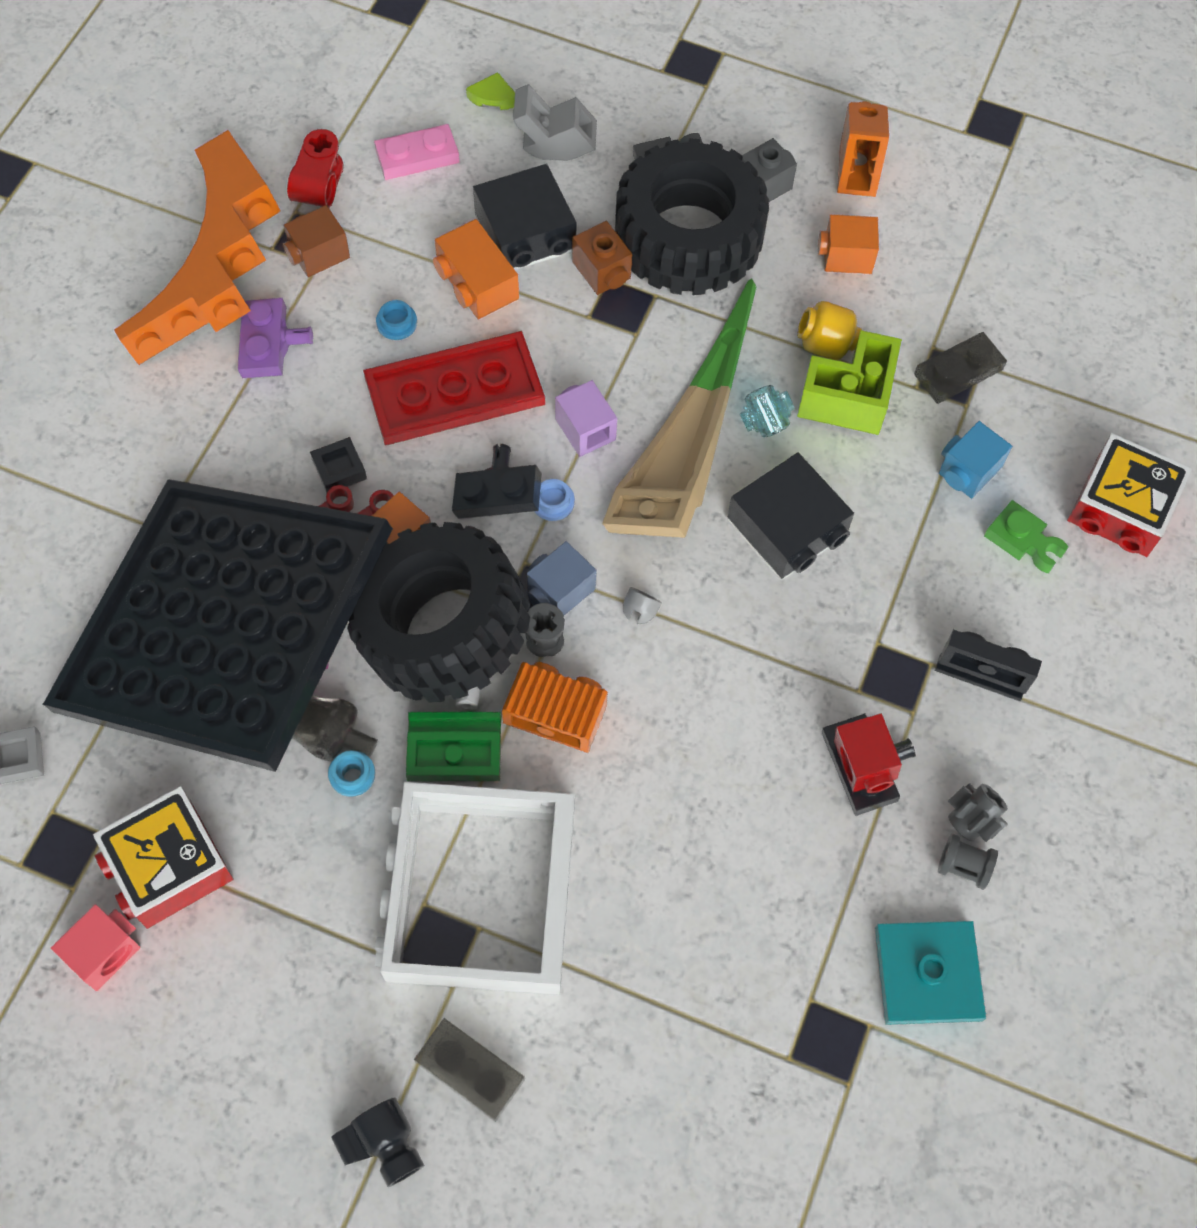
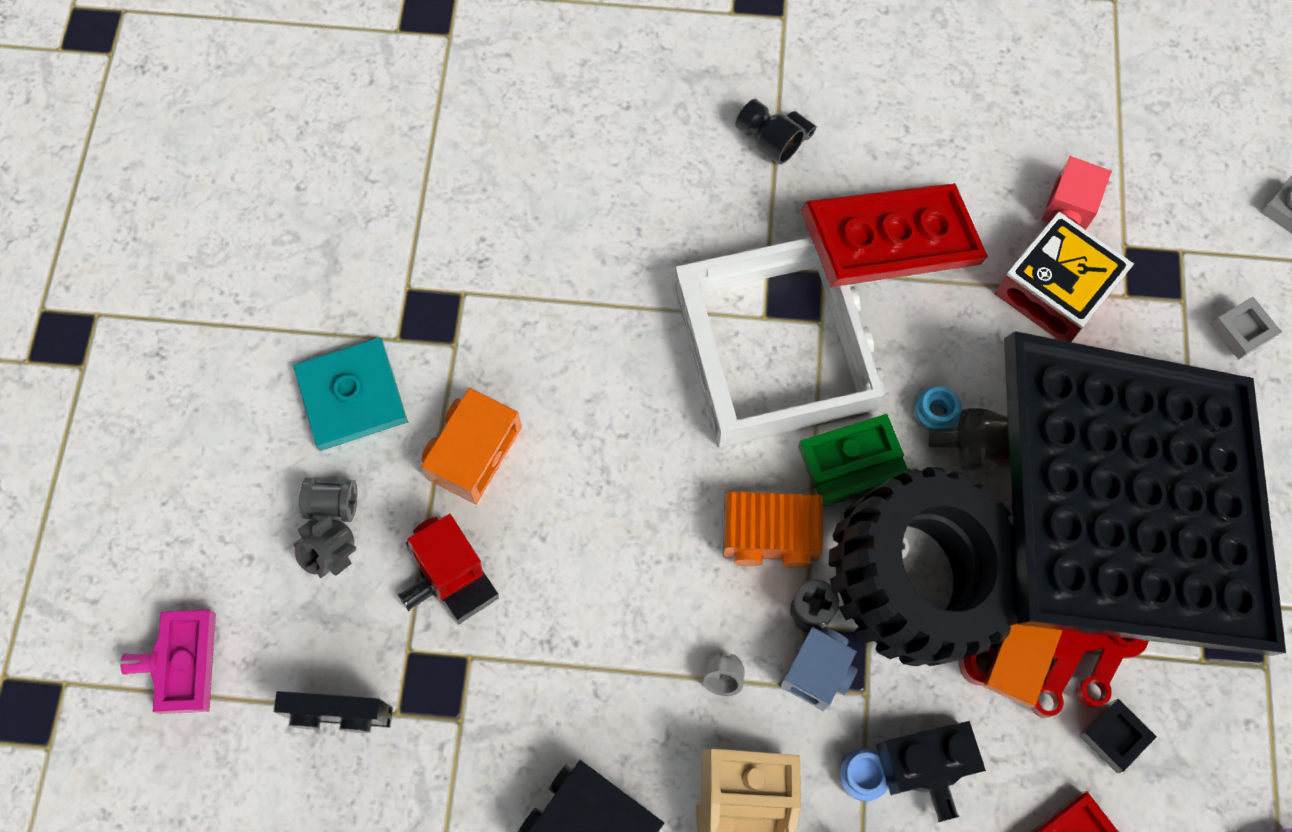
camera: 165 degrees right, 5 degrees up
(313, 957) = (892, 234): none -> red tile
(469, 1069) = (727, 199): clear smoke plate -> none
(818, 870) = (471, 445): none -> orange brick
(1123, 755) = (179, 662): none -> dark pink plate

